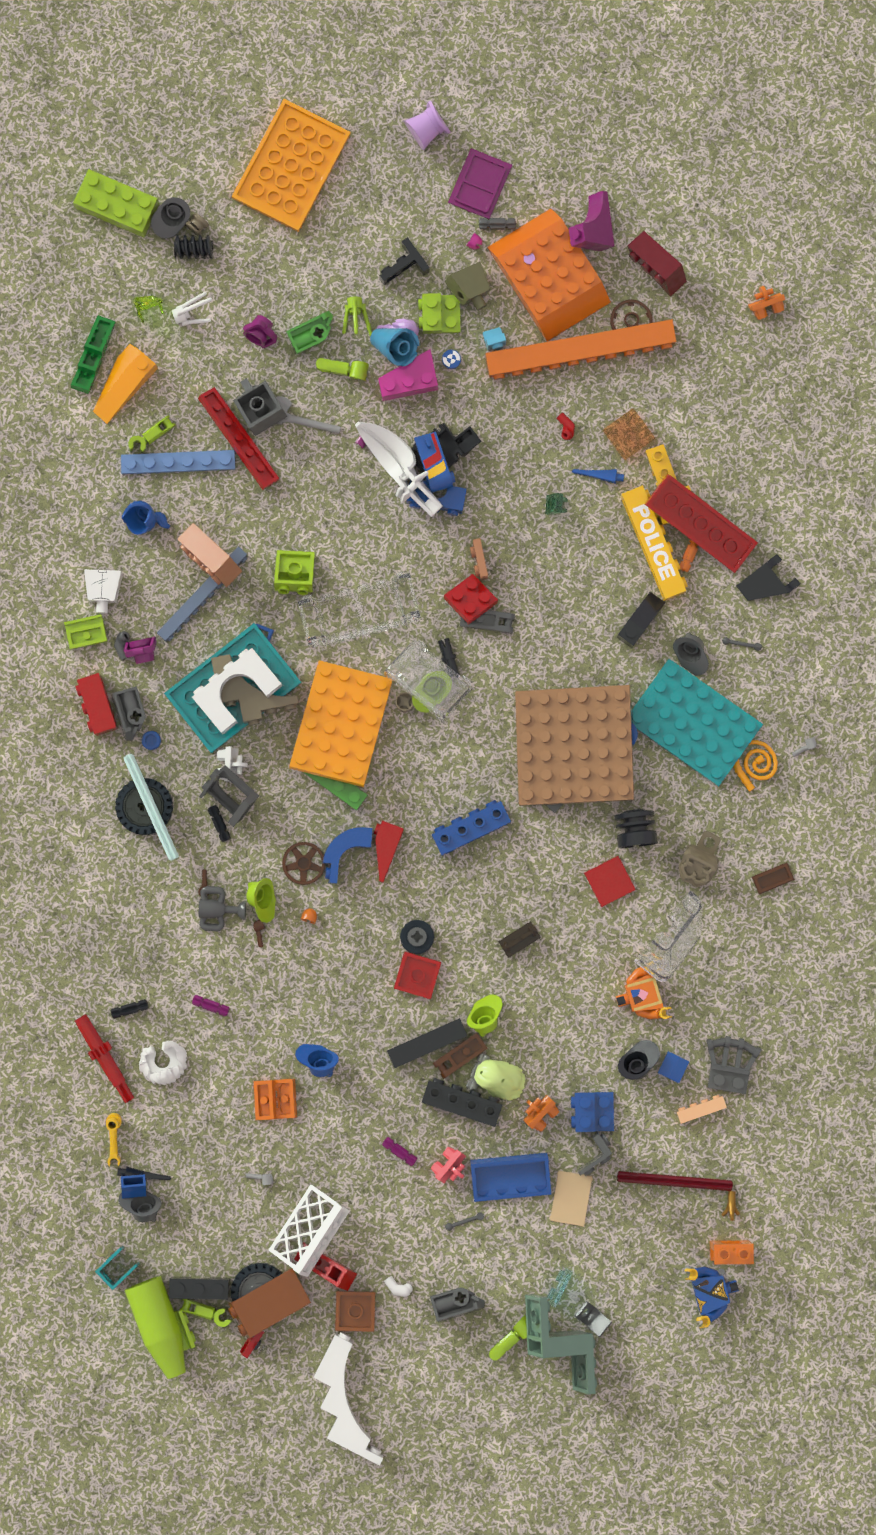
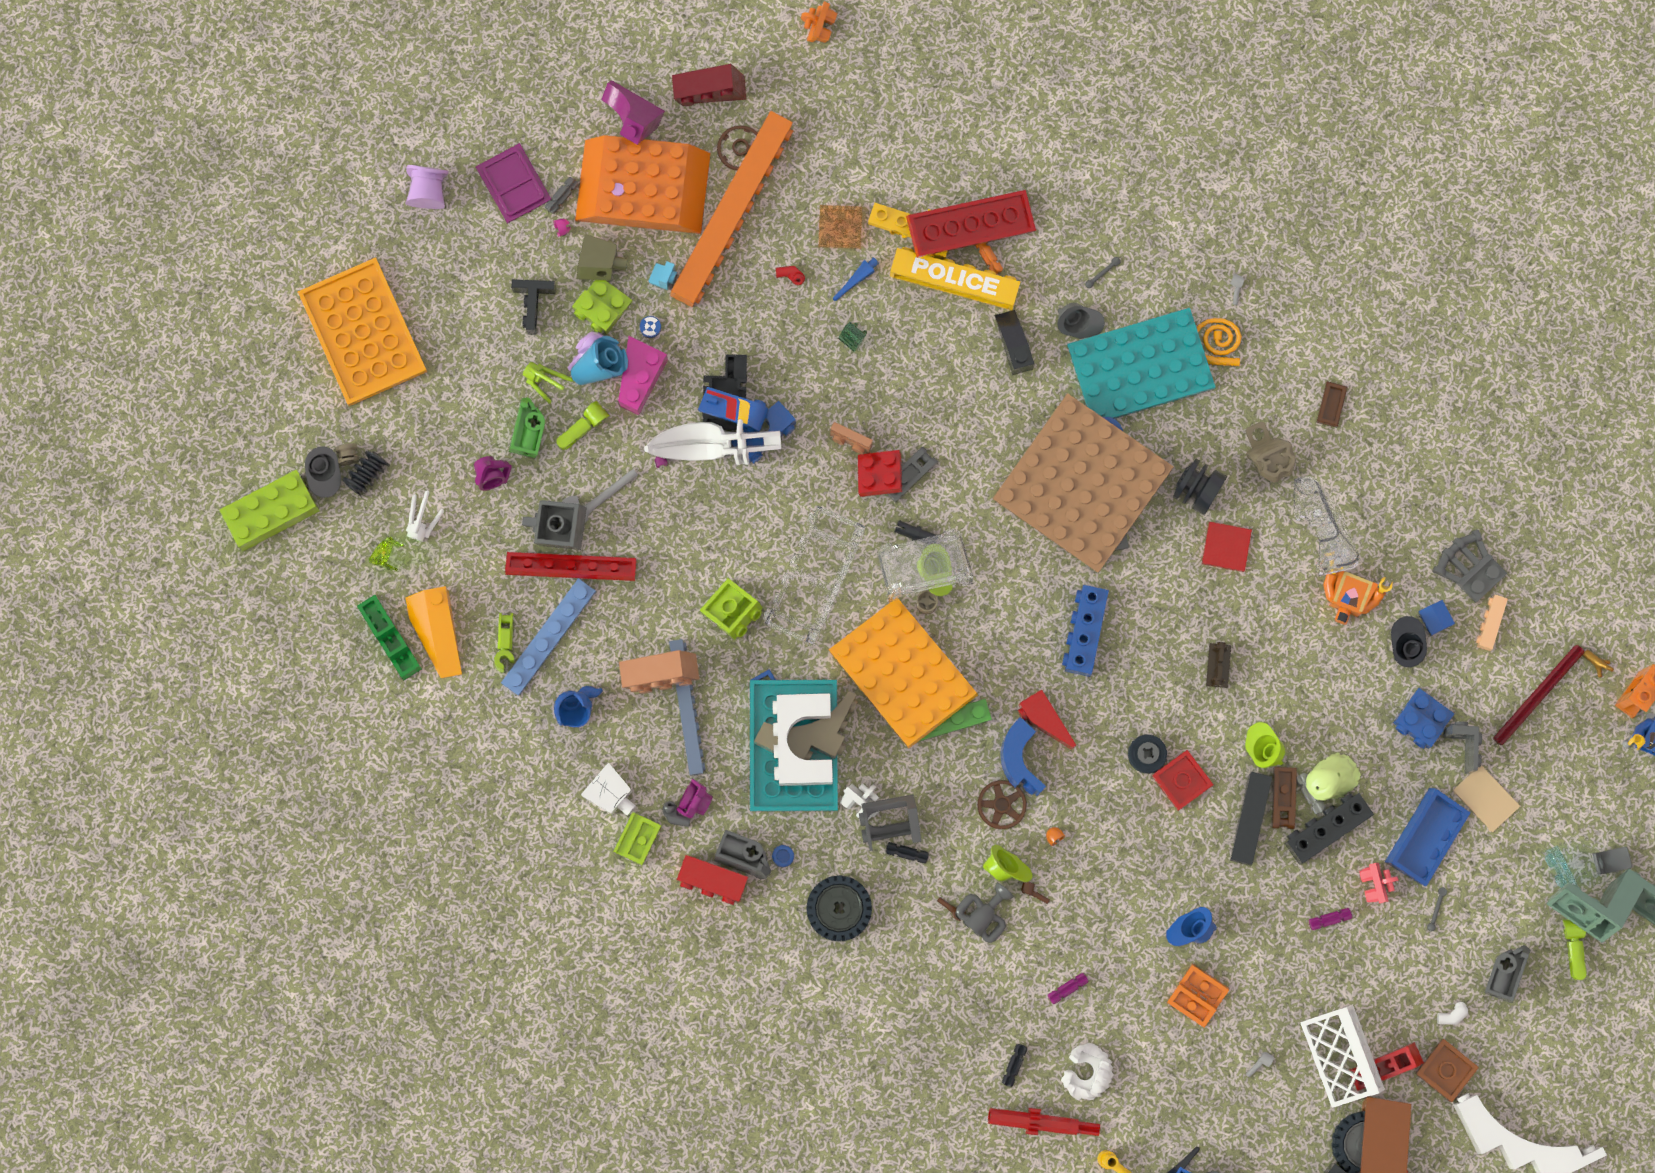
camera: 55 degrees left, 5 degrees down
(151, 807) = (846, 901): light aqua axle -> none
(538, 1110) = (1387, 765): orange hips -> none
(765, 582) = (1064, 211): black flag -> none

